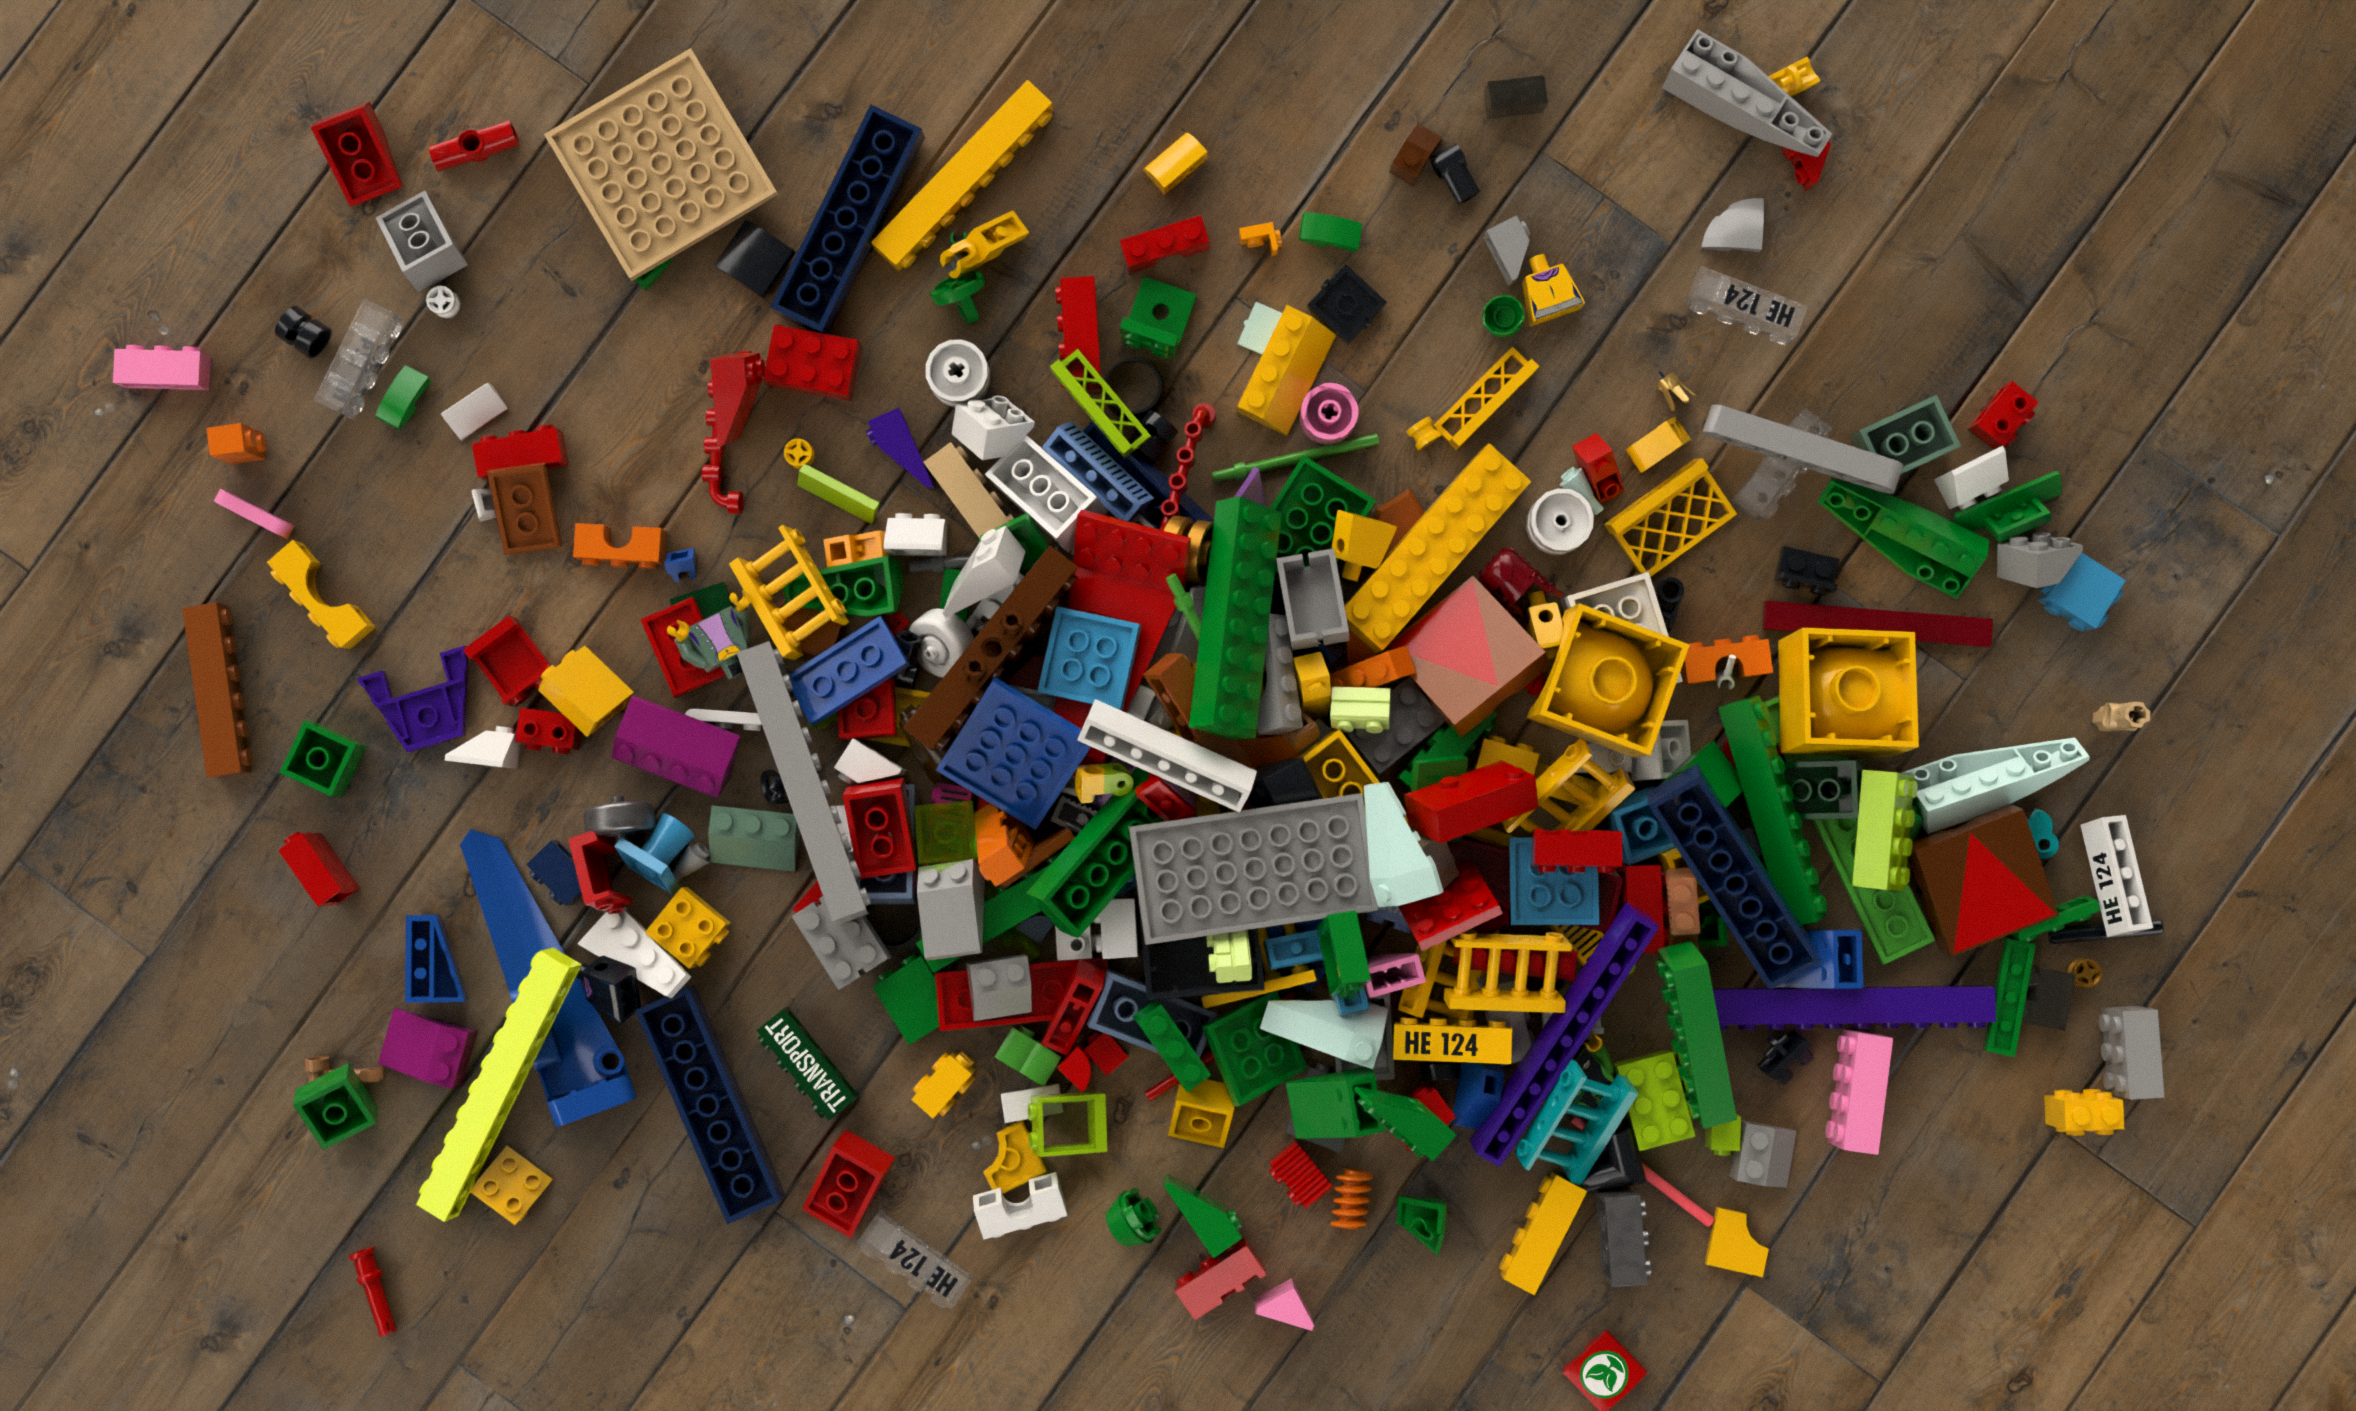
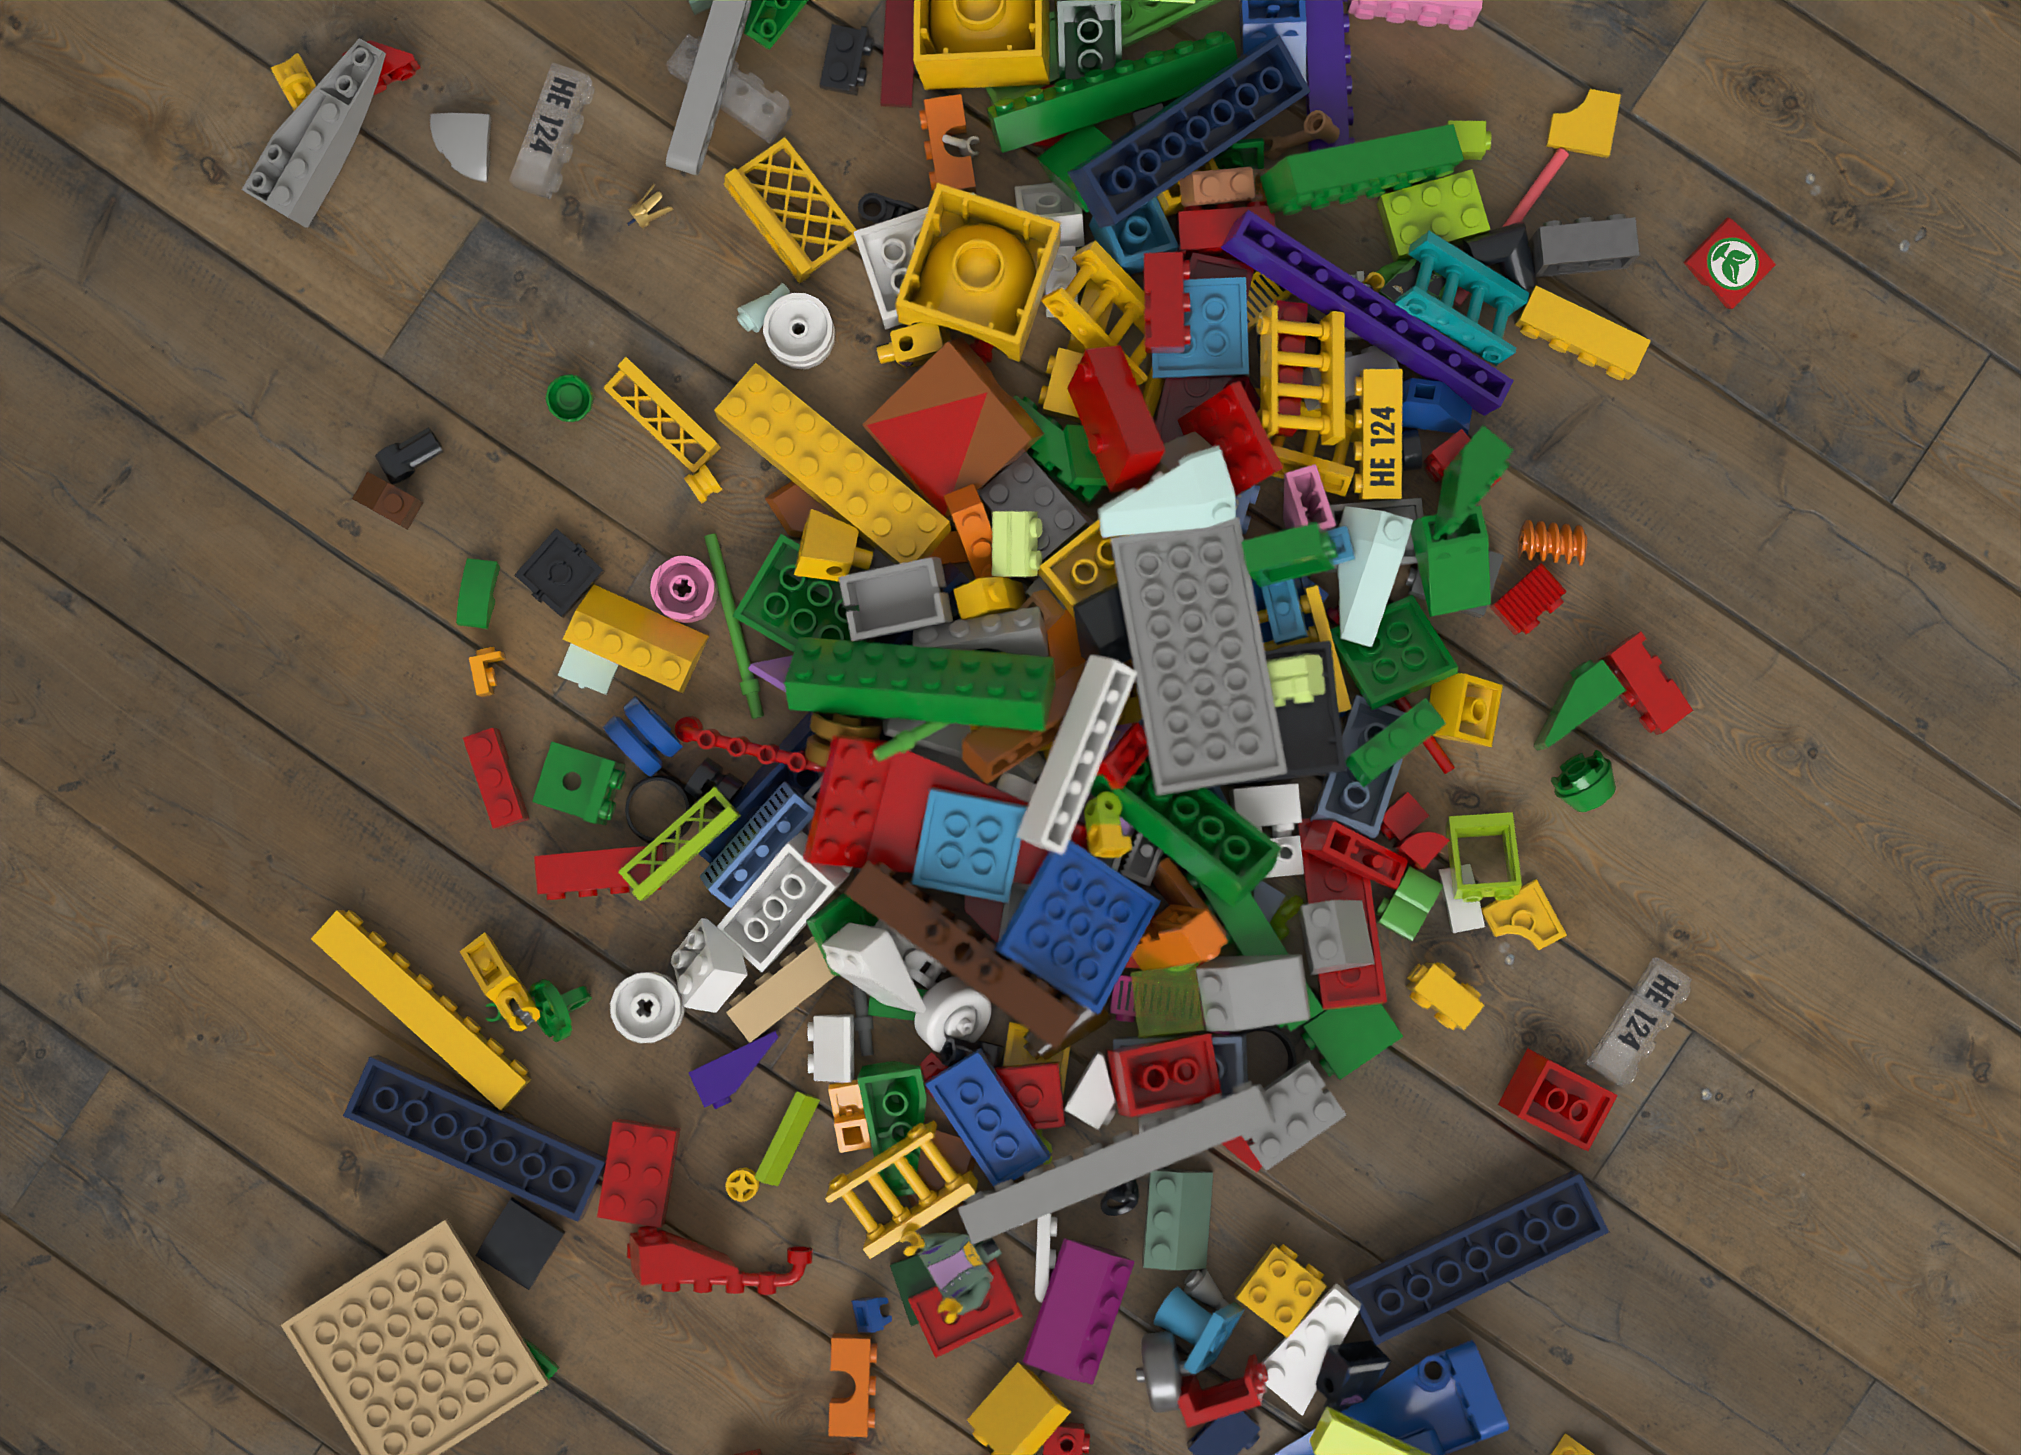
camera: 85 degrees left, 0 degrees up
(807, 1063) = (1427, 1150): dark green brick -> none
(999, 1216) = (1587, 929): white arch -> none
(1176, 163) = (401, 769): yellow brick -> none
(1197, 373) = (641, 738): none -> blue wheel
(1284, 1305) = (1672, 612): bright pink slope -> none
(1423, 1219) = (1572, 463): green slope -> none
(1508, 246) = (491, 394): light grey slope -> none
(1514, 578) = (863, 379): dark red helmet -> none
(1515, 97) = (321, 390): clear smoke brick -> none
(1549, 291) = (540, 348): yellow torso -> none
(1599, 467) = (737, 288): red slope -> none
(1658, 444) = (710, 224): yellow tile -> none
(1736, 994) = (1316, 126): none -> medium nougat brick
(1763, 1155) = (1488, 96): light grey slope -> none
(1783, 1054) = (1379, 76): black hips -> none

